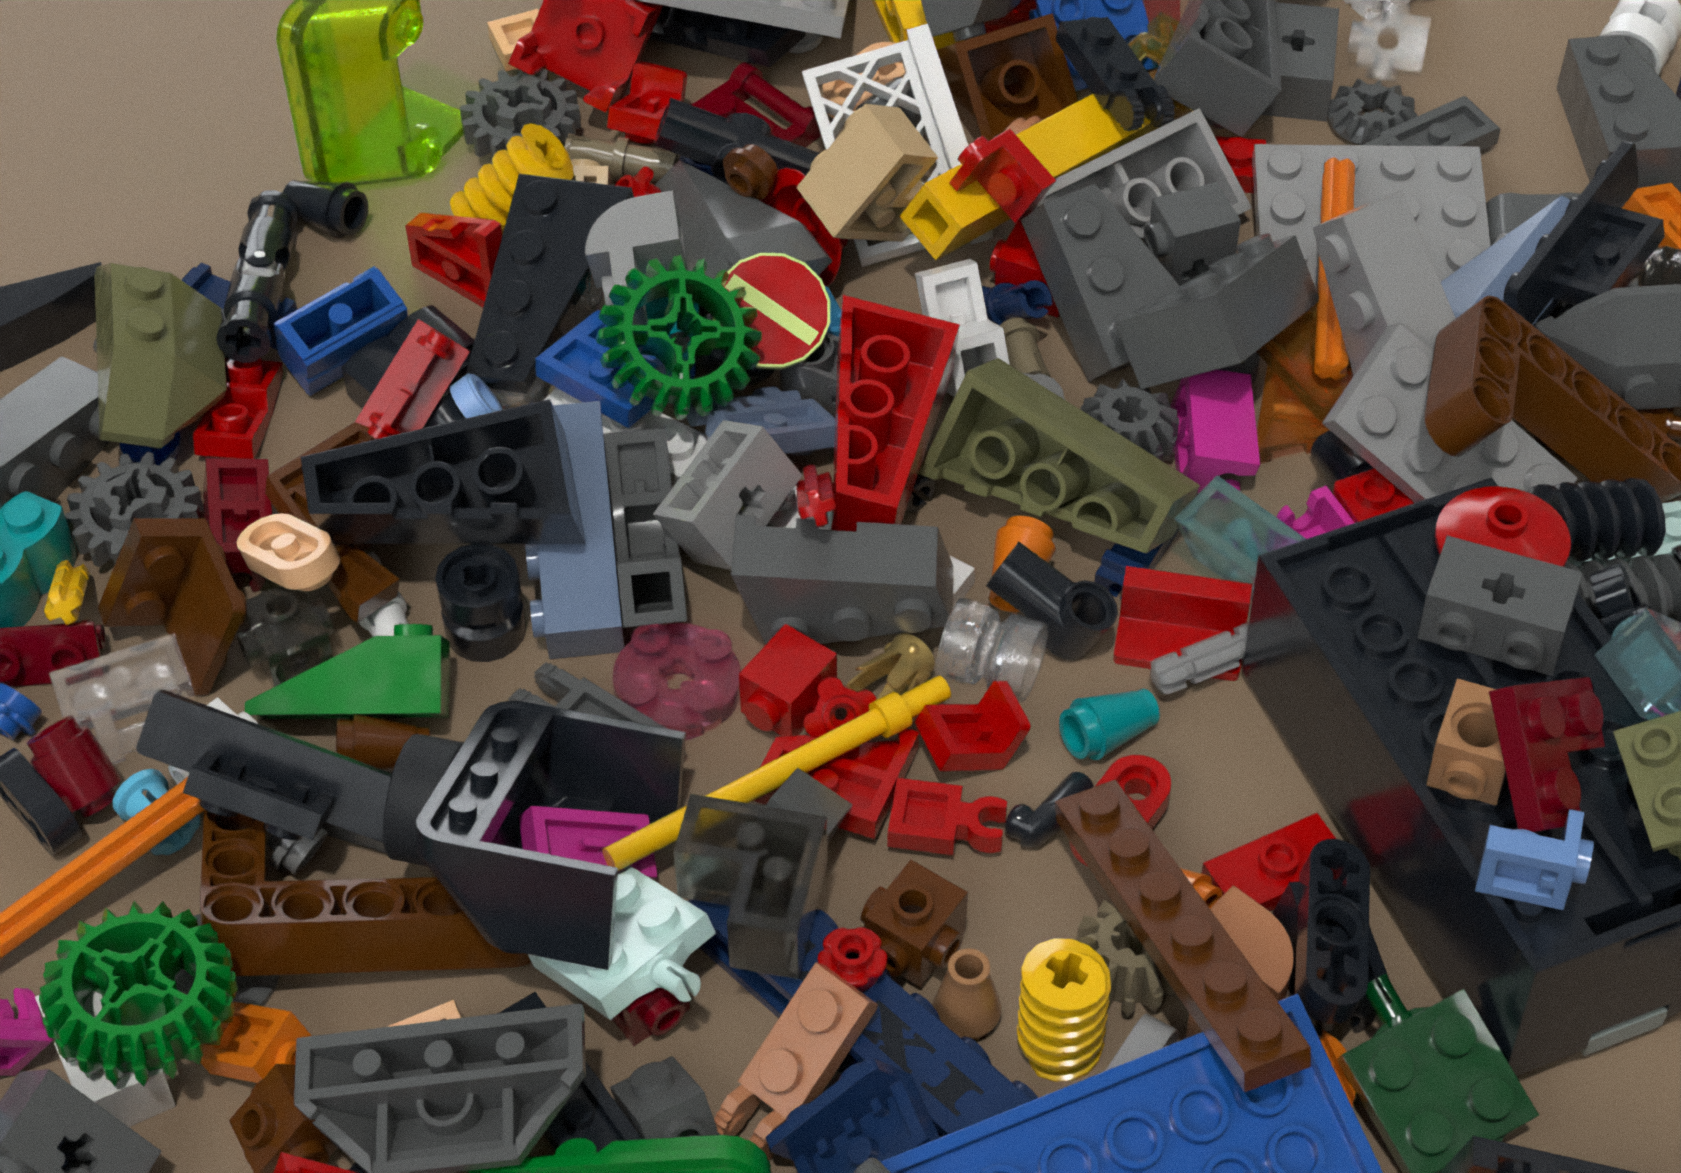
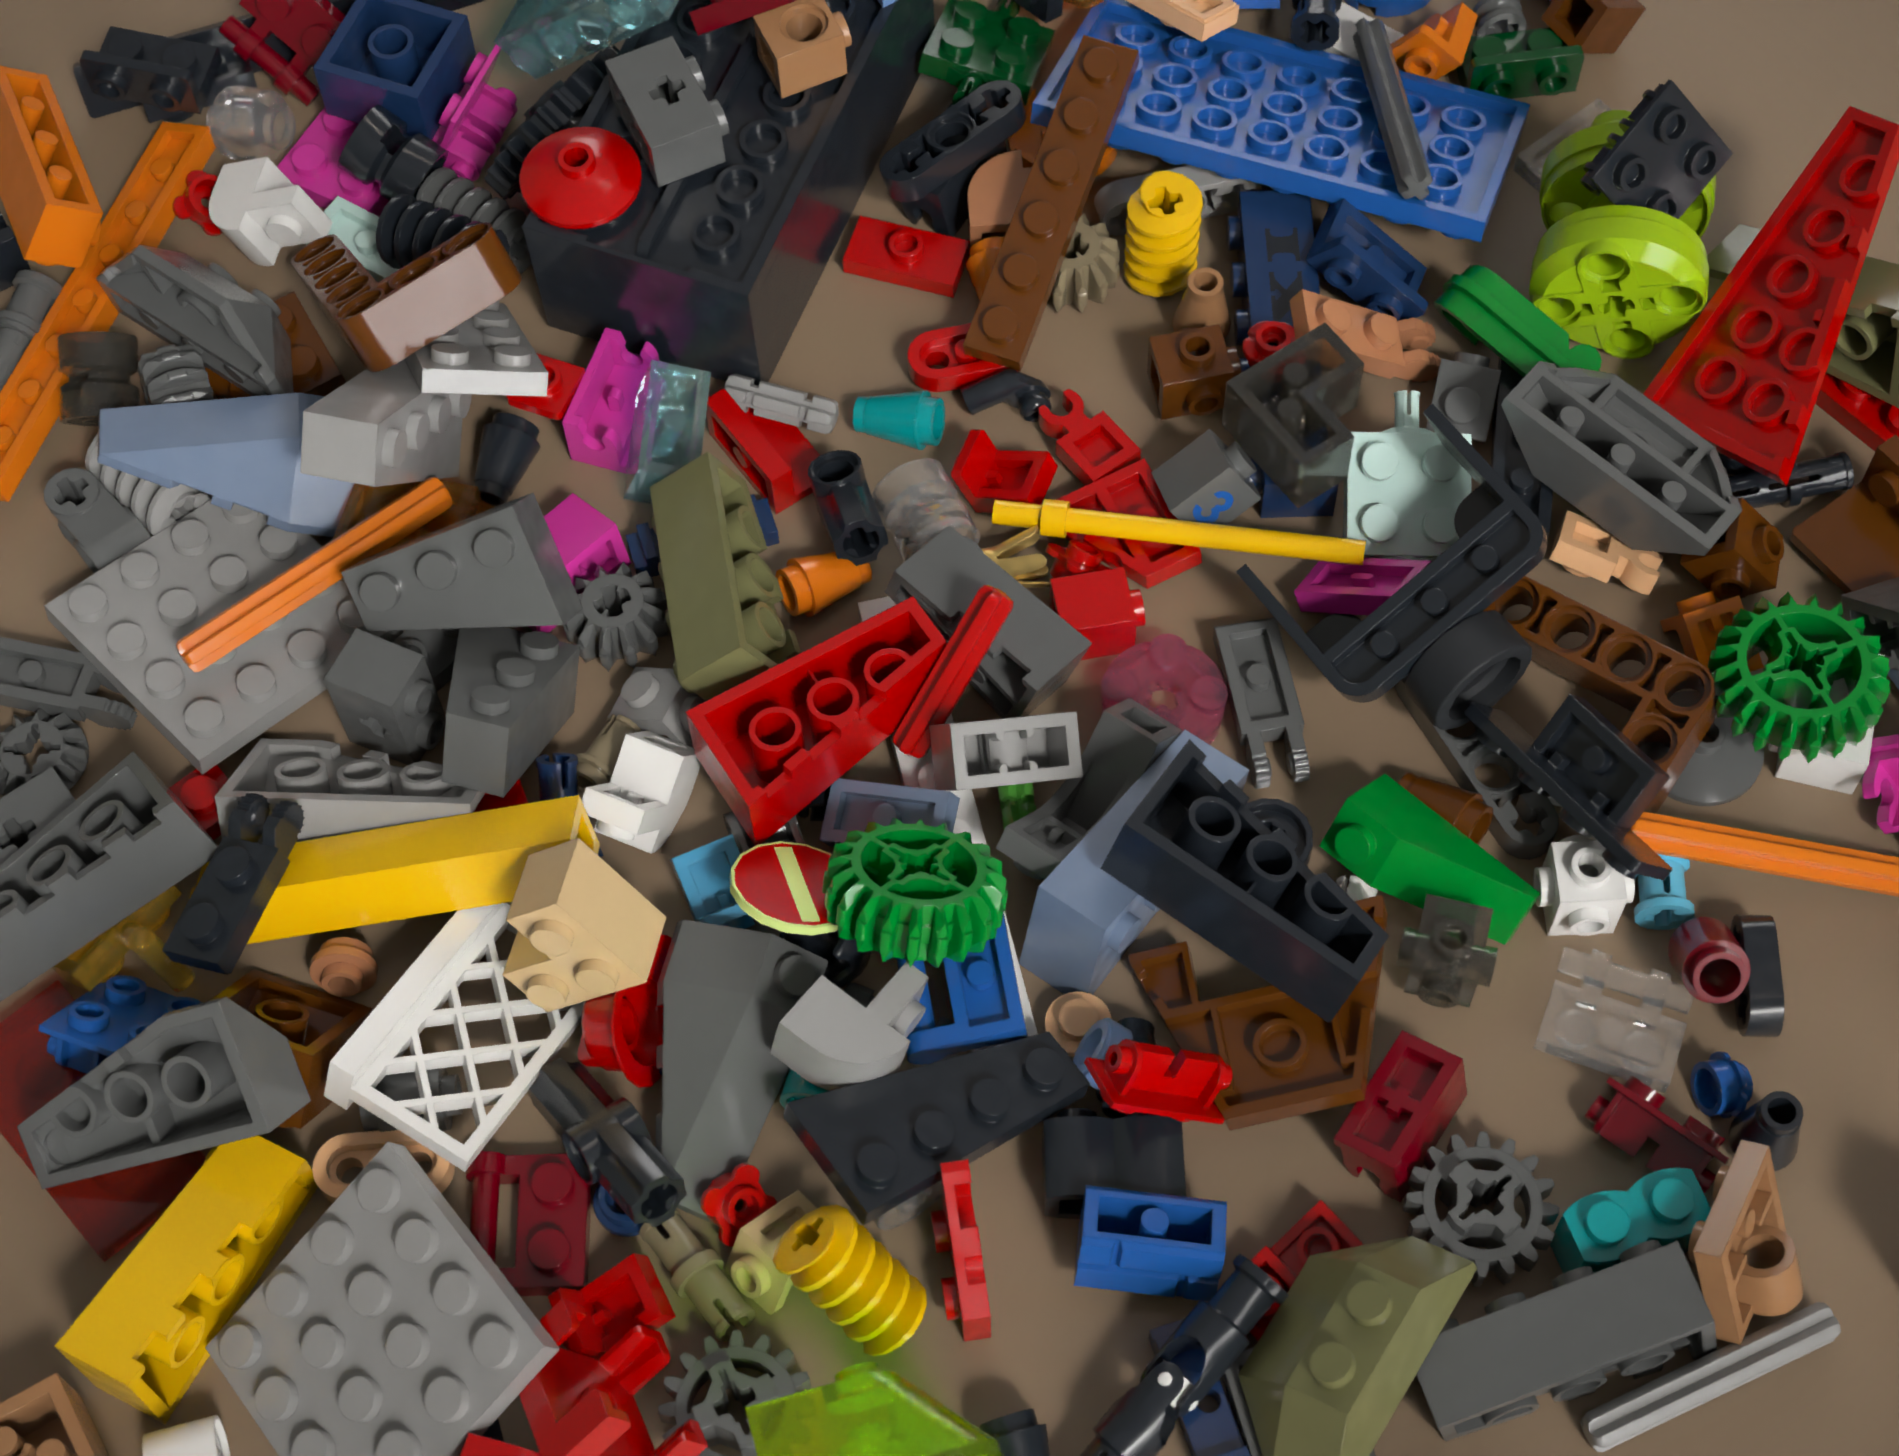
camera: 135 degrees left, 10 degrees up
(66, 592) = (1606, 1142): yellow axle -> none
(177, 579) = (1508, 1046): reddish brown bracket -> none
(289, 552) = (1414, 975): light nougat plate -> none
(750, 171) = (647, 1070): reddish brown plate -> none
(1006, 172) = (498, 797): red bracket -> none
(1592, 245) = (158, 377): black bracket -> none

